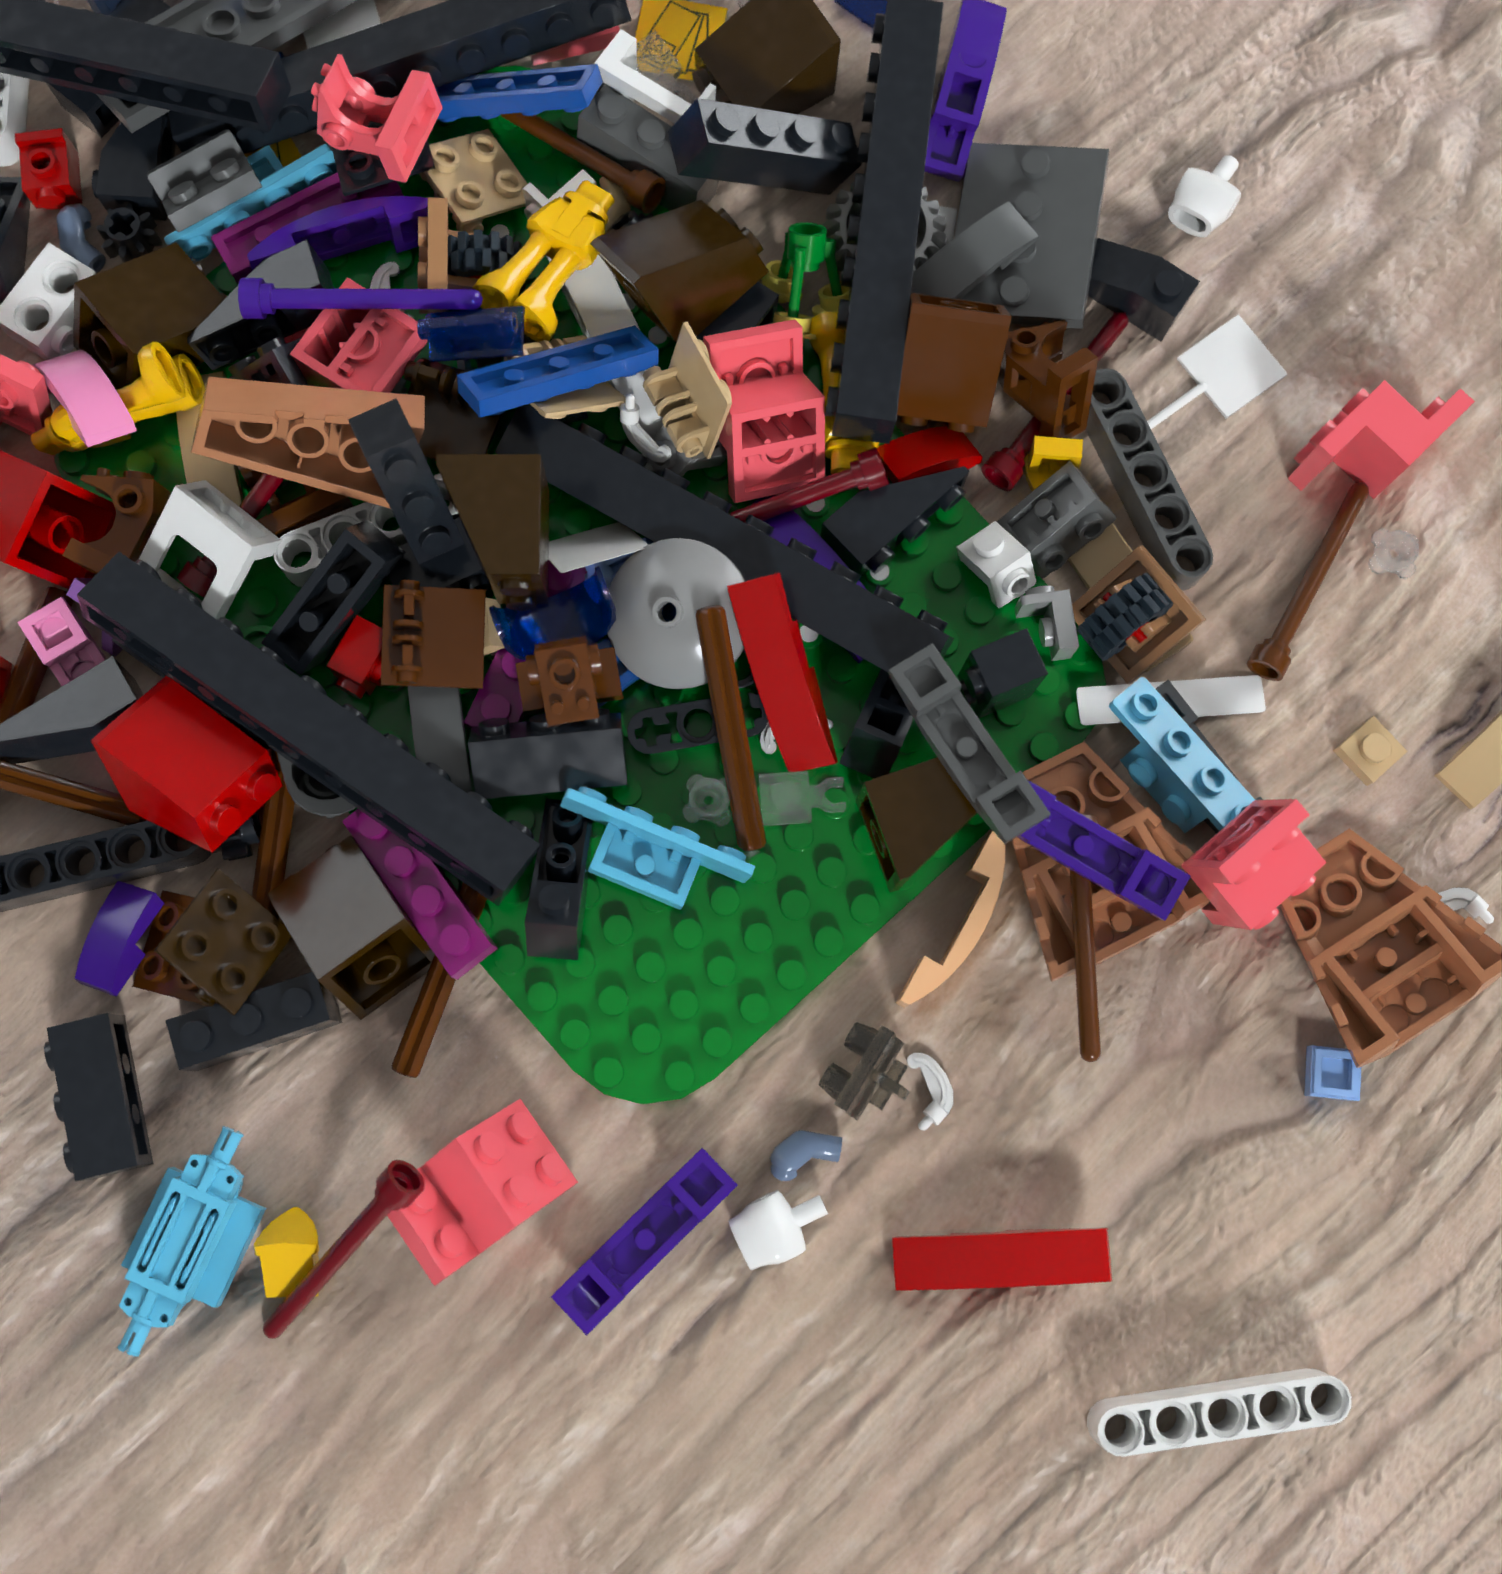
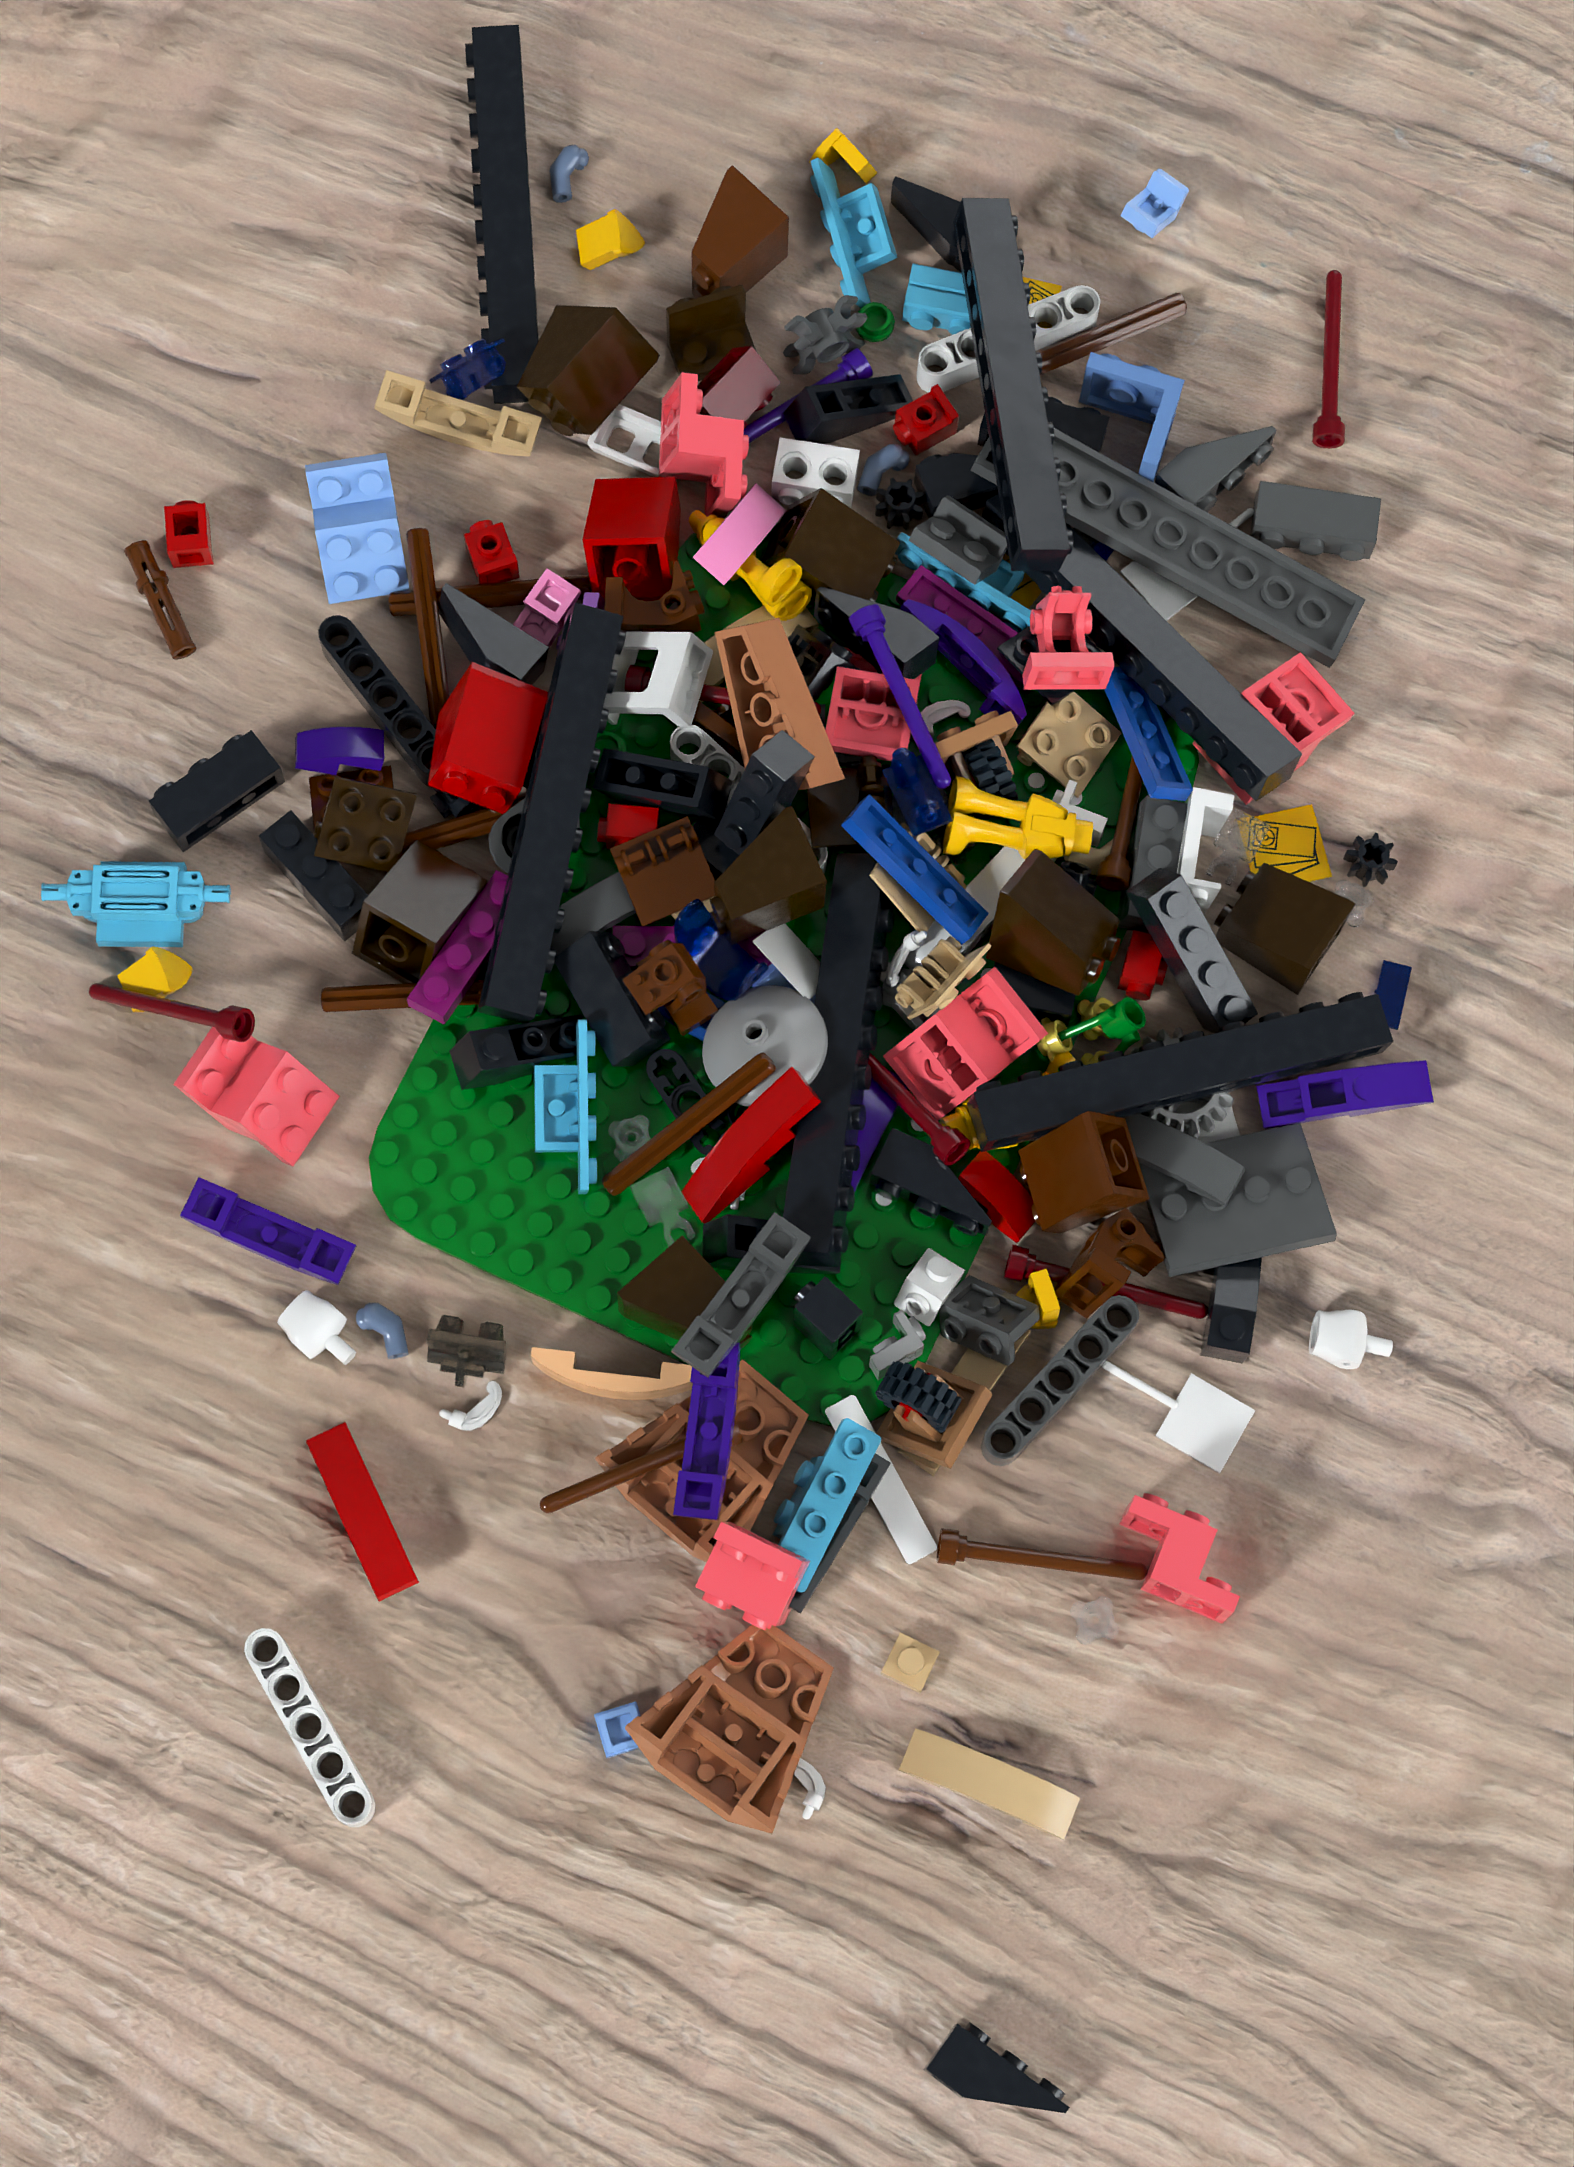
camera: 70 degrees right, 5 degrees down
(749, 209) = (1142, 967): none -> red brick

